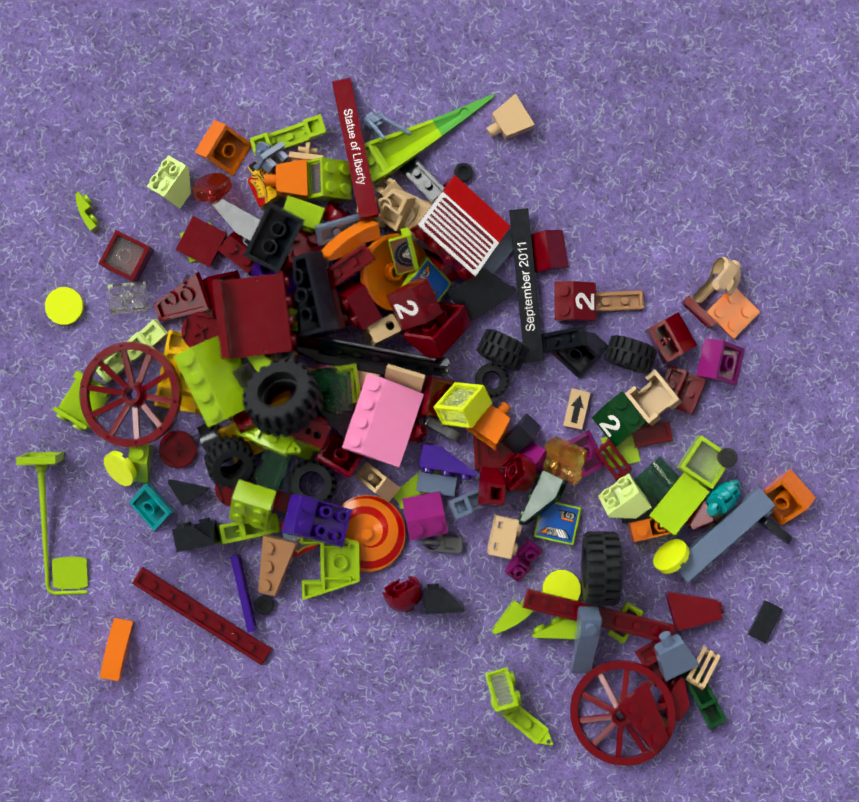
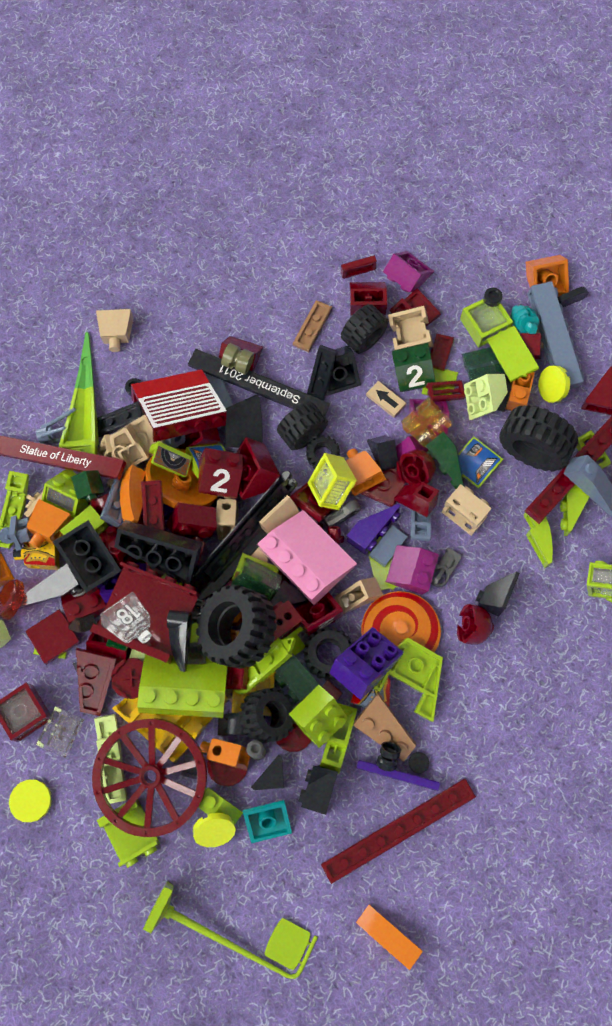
camera: 55 degrees left, 15 degrees down
(183, 445) = (226, 753): none -> orange torso
(197, 468) = (256, 750): none -> dark grey piece
(223, 264) = (82, 624): none -> clear smoke slope
(237, 307) = (127, 619): none -> clear torso
(252, 578) = (388, 758): none -> black wheel
(255, 352) = (180, 628): none -> black piece
(339, 196) = (88, 485): none -> dark green brick
(520, 563) = (499, 513): magenta slope -> none
(536, 254) = (237, 358): none -> olive wheel
(562, 584) = (532, 485): neon yellow tile -> none
(574, 301) = (294, 353): dark red slope -> none
(728, 278) = (340, 230): tan piece -> none
(733, 312) = (373, 242): orange plate -> none

